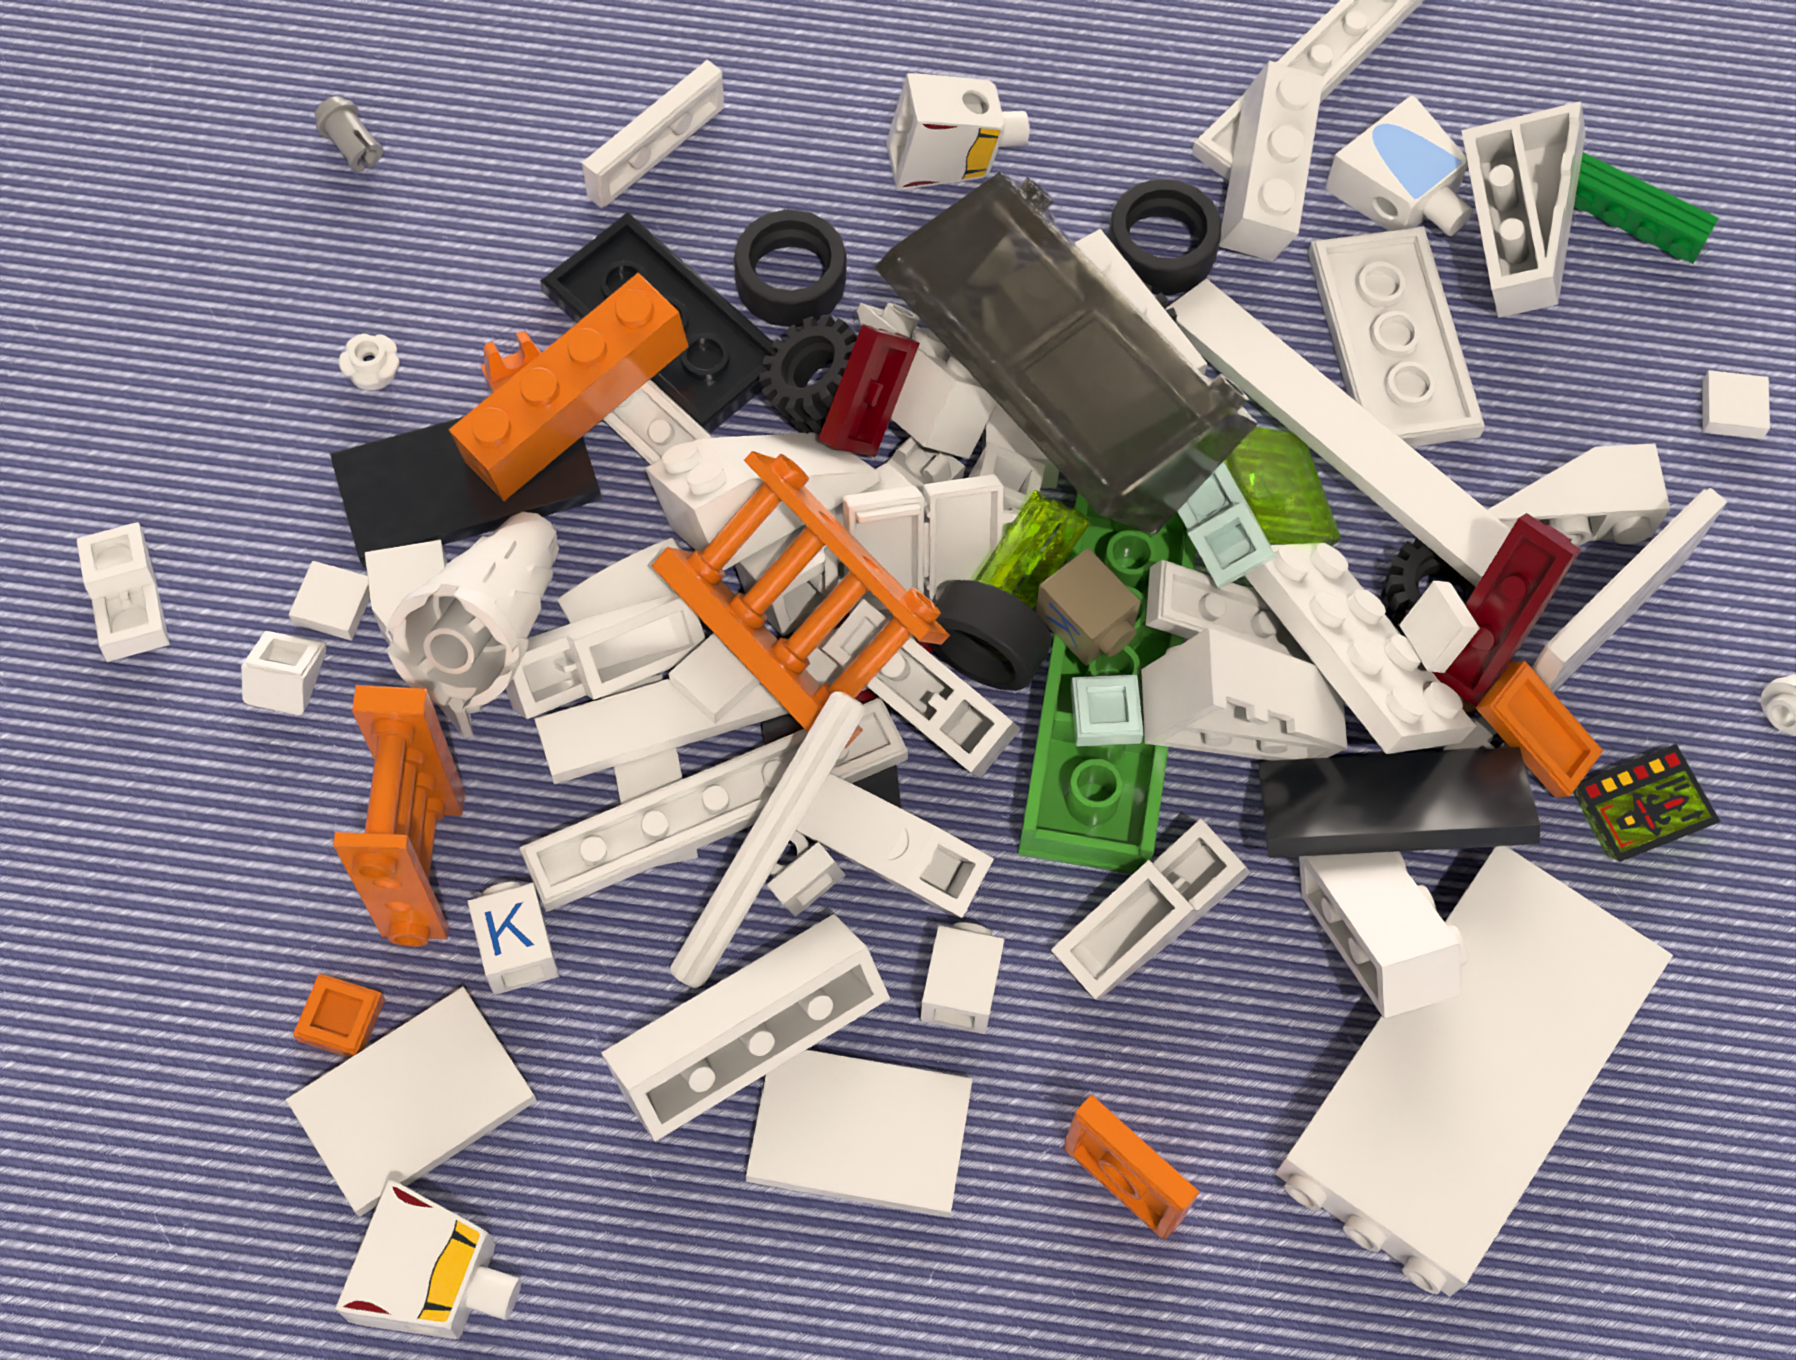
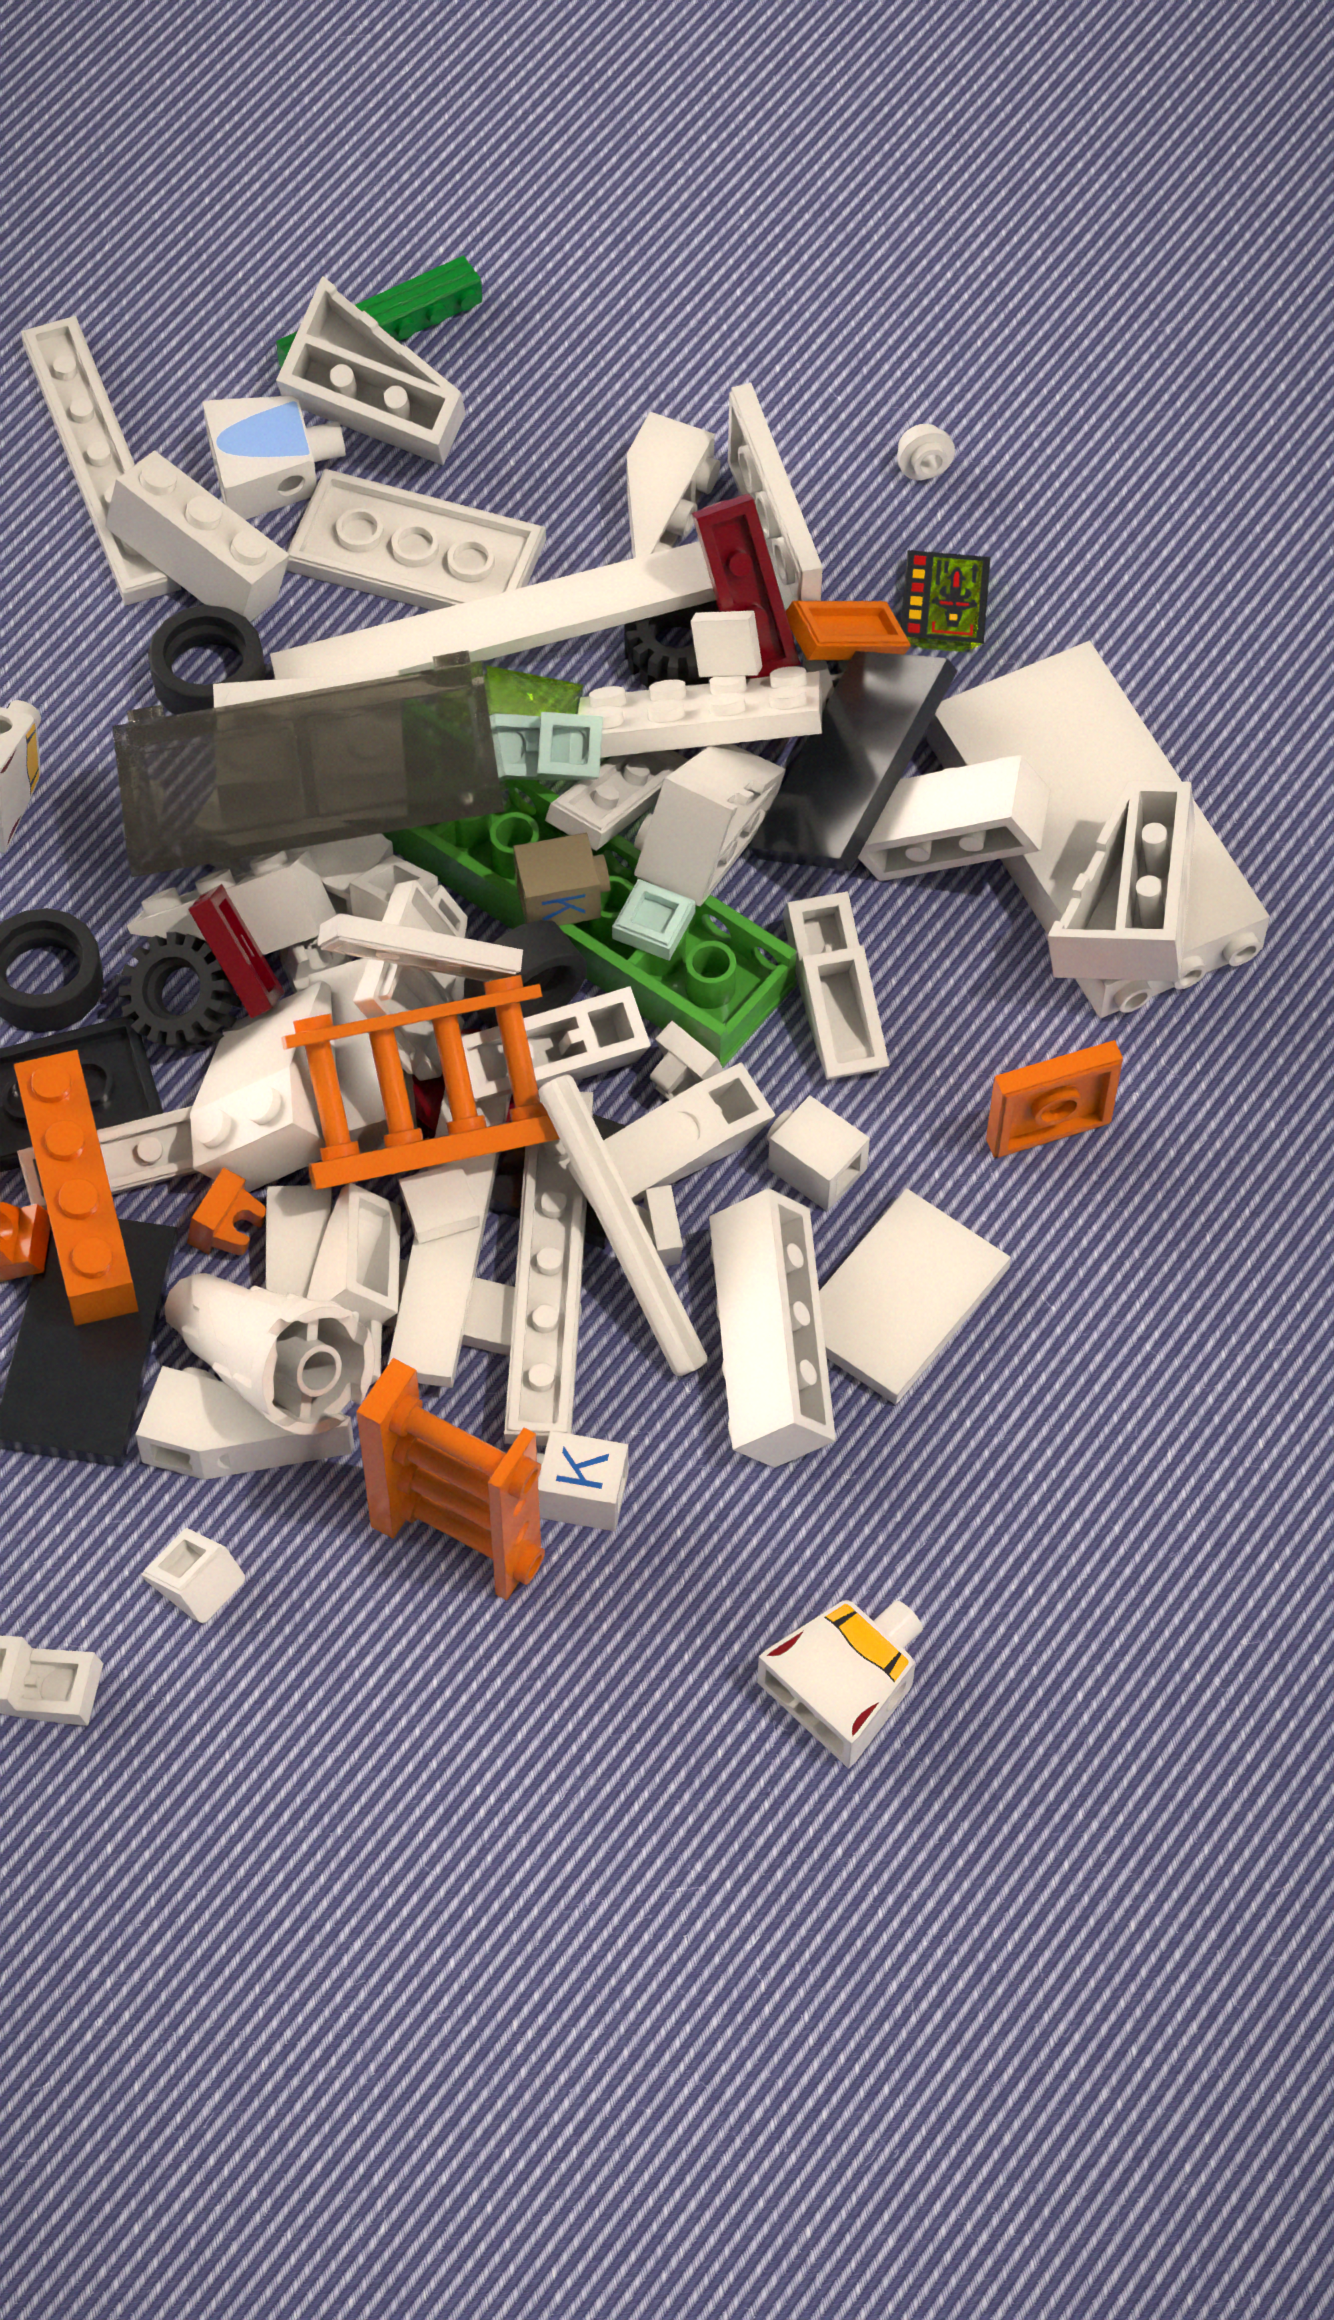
camera: 60 degrees left, 5 degrees down
(331, 600) = (146, 1502): white tile -> none
(338, 1016) = (568, 1660): orange tile -> none
(411, 1100) = (681, 1632): white tile -> none
(626, 512) = (219, 1210): none -> orange tile
(910, 516) = (419, 948): none -> white tile
(989, 816) = (683, 1062): none -> white tile
(1024, 539) = (468, 894): clear neon green tile -> none
(1395, 1132) = (1135, 892): none -> white wedge
(1735, 404) = (635, 344): white tile -> none

